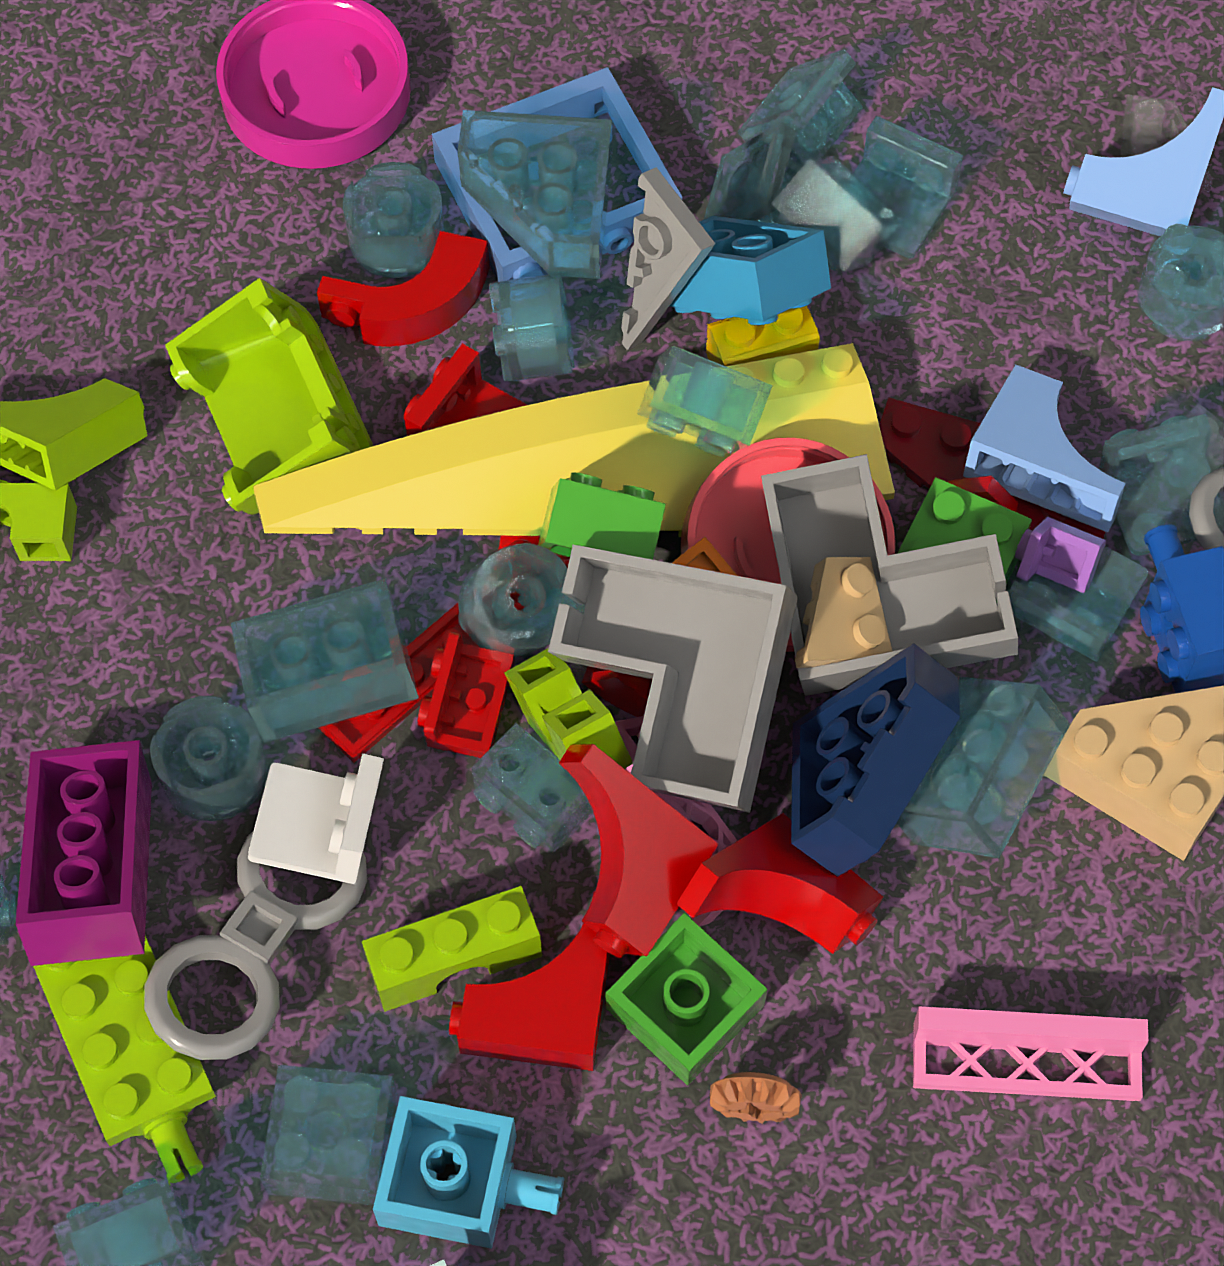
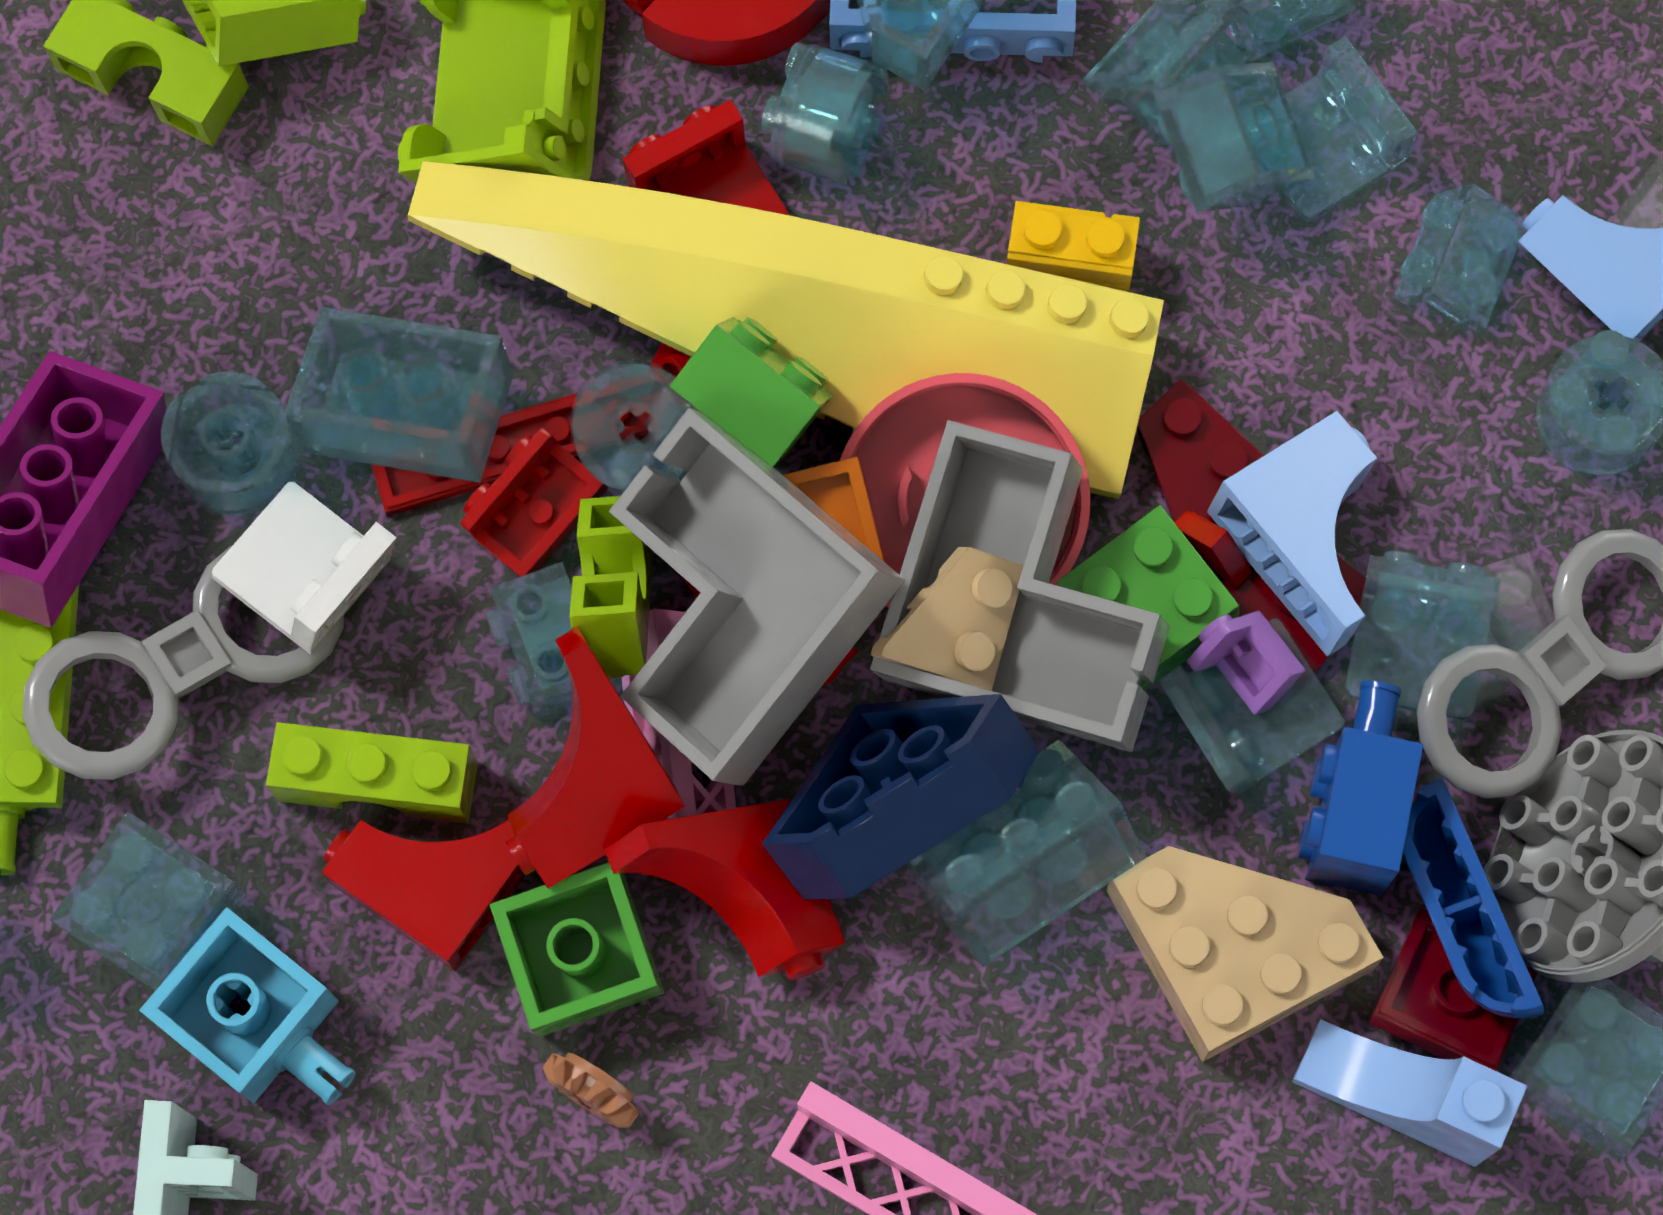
camera: 30 degrees right, 10 degrees up
(663, 257) = (993, 101): light grey wing -> none
(703, 401) = (931, 304): clear light blue brick -> none
(756, 271) = (1079, 153): dark azure brick -> none
(1032, 232) = (1461, 255): none -> clear light blue bracket

